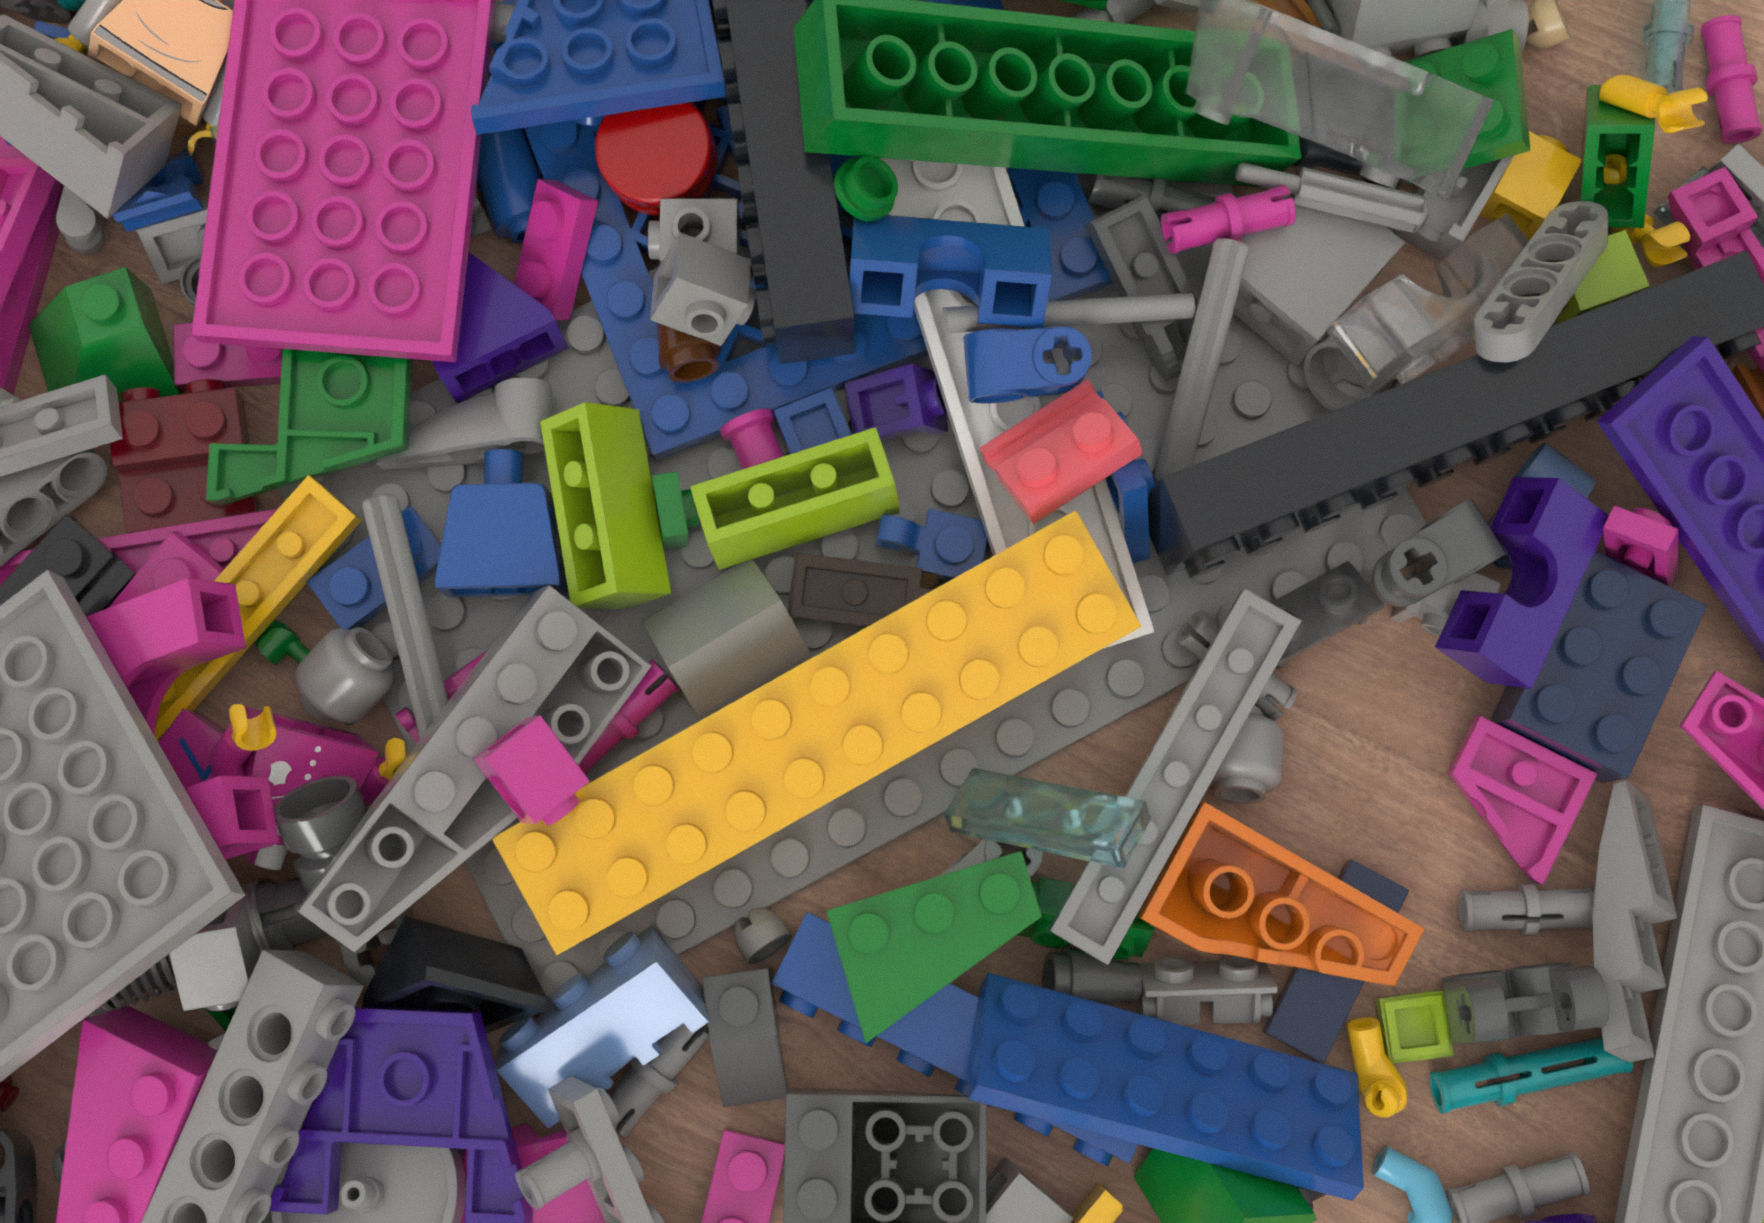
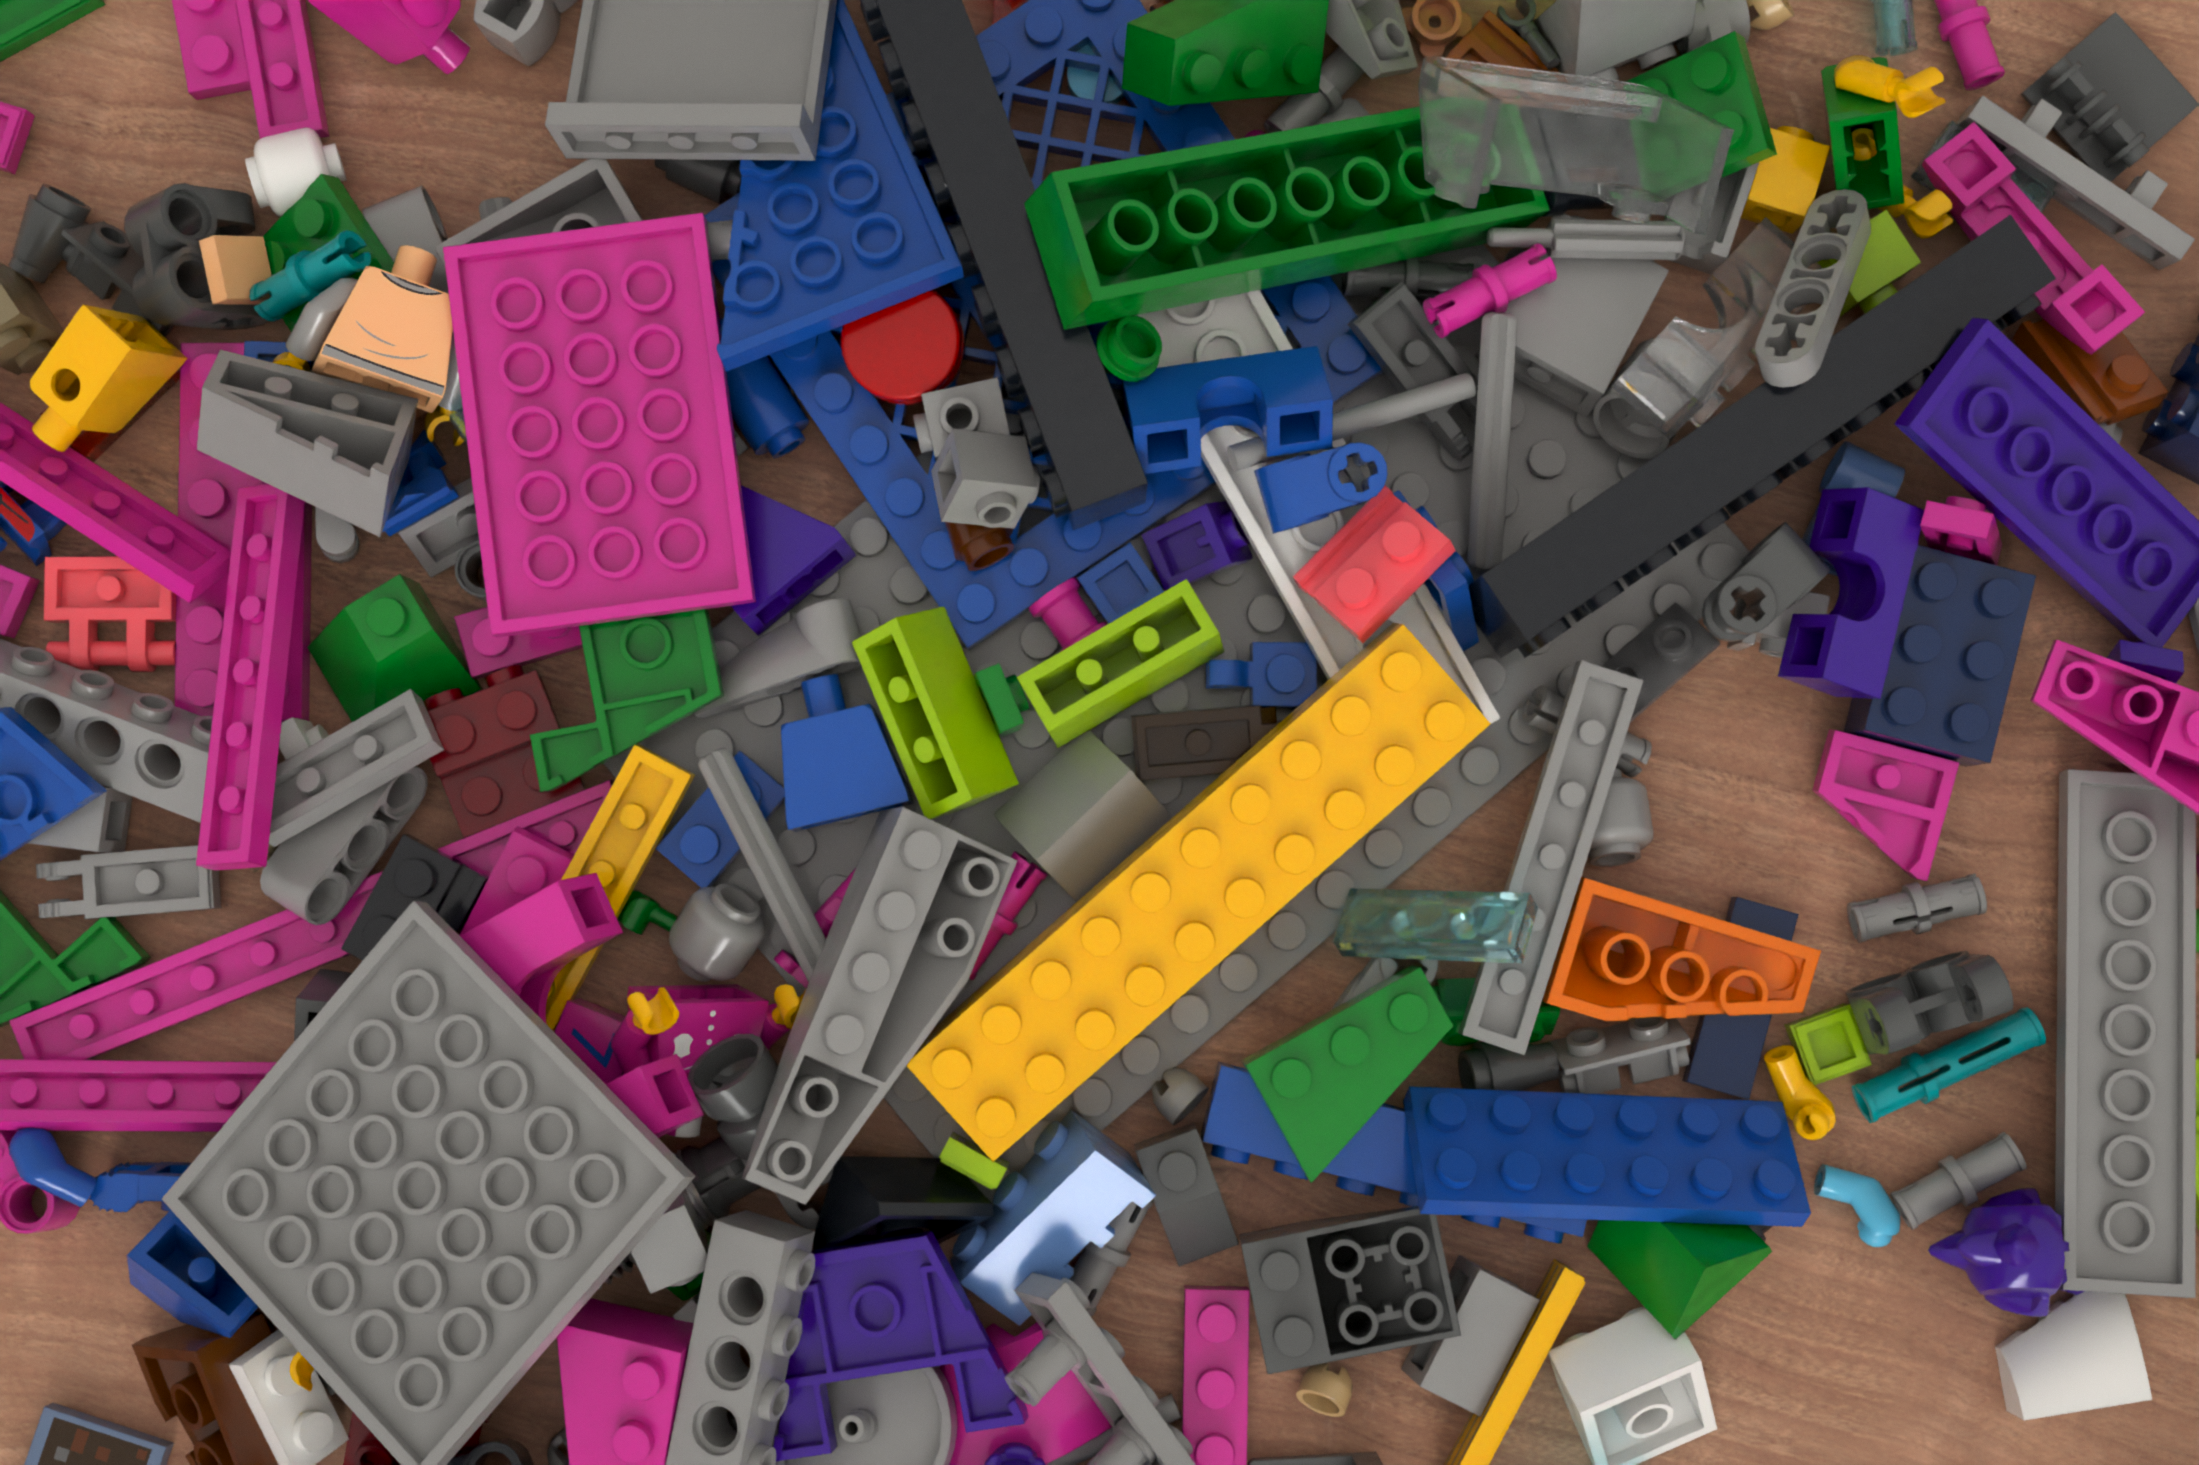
camera: 10 degrees left, 5 degrees up
(533, 772) = (934, 995): dark pink brick -> none
(537, 952) = (972, 1161): none -> lime tile
(555, 245) = (821, 457): dark pink plate -> none
(1628, 899) = (2012, 878): light grey slope -> none

